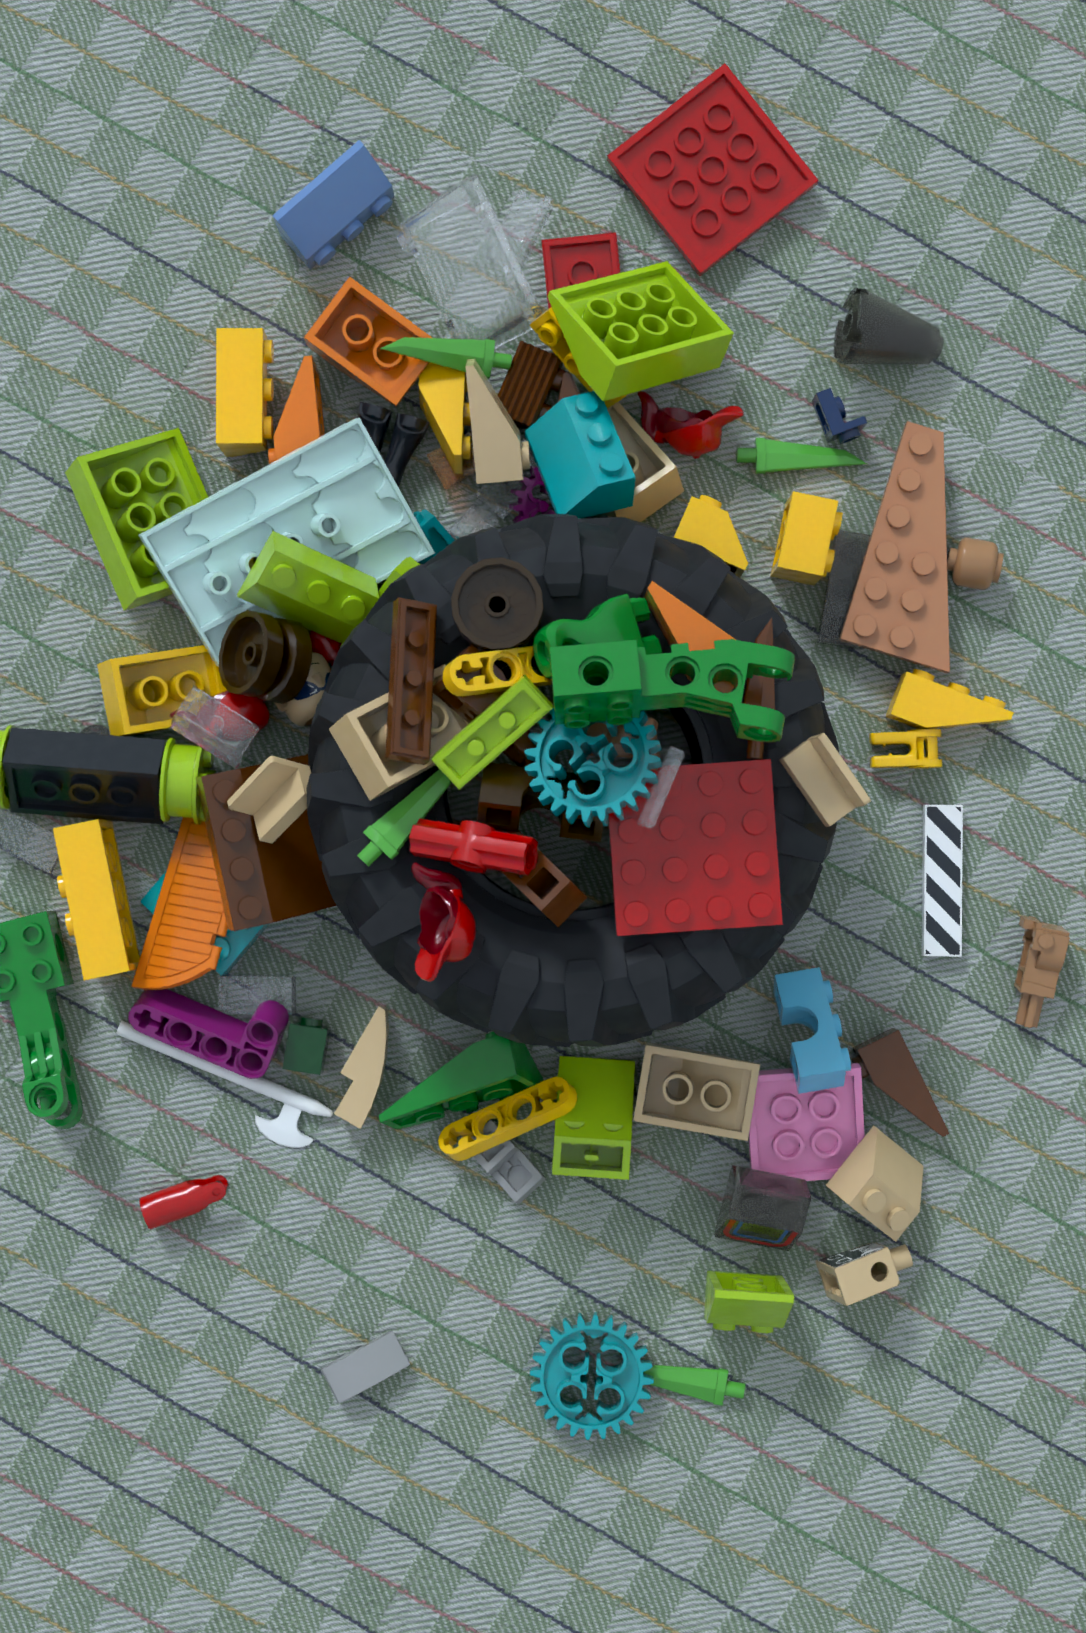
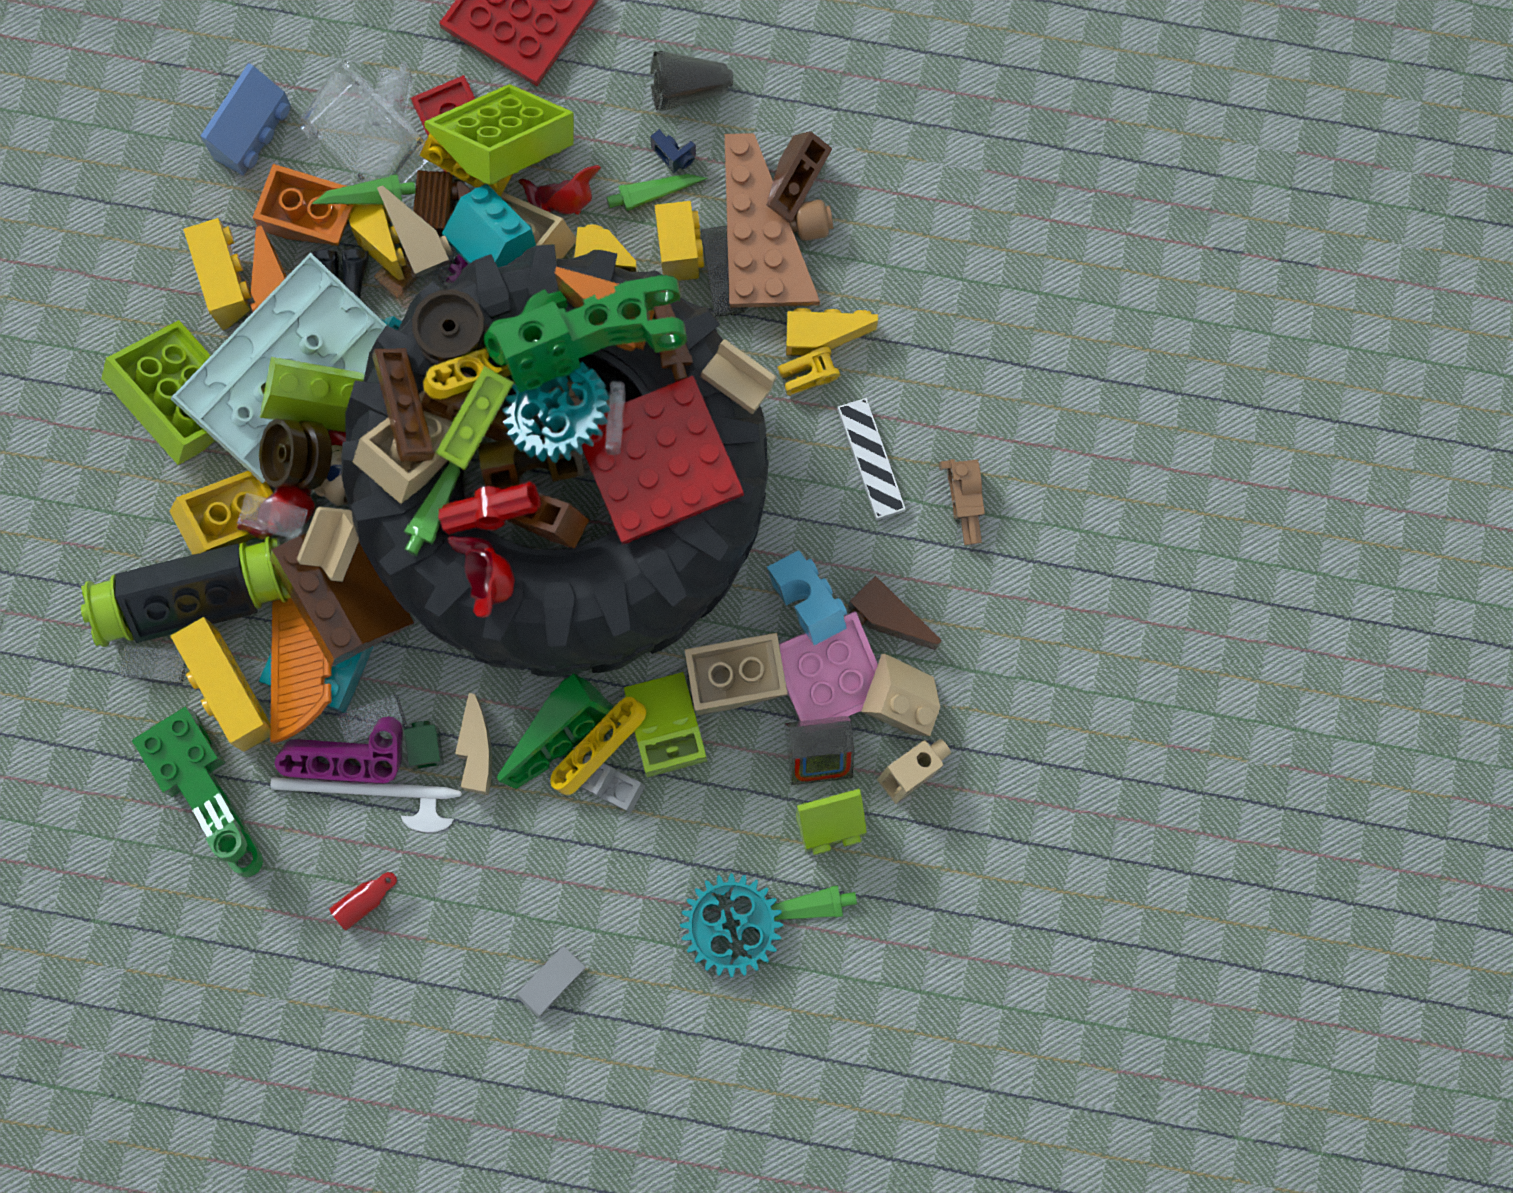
camera: 20 degrees left, 10 degrees down
(977, 501) = (797, 173): none -> reddish brown slope

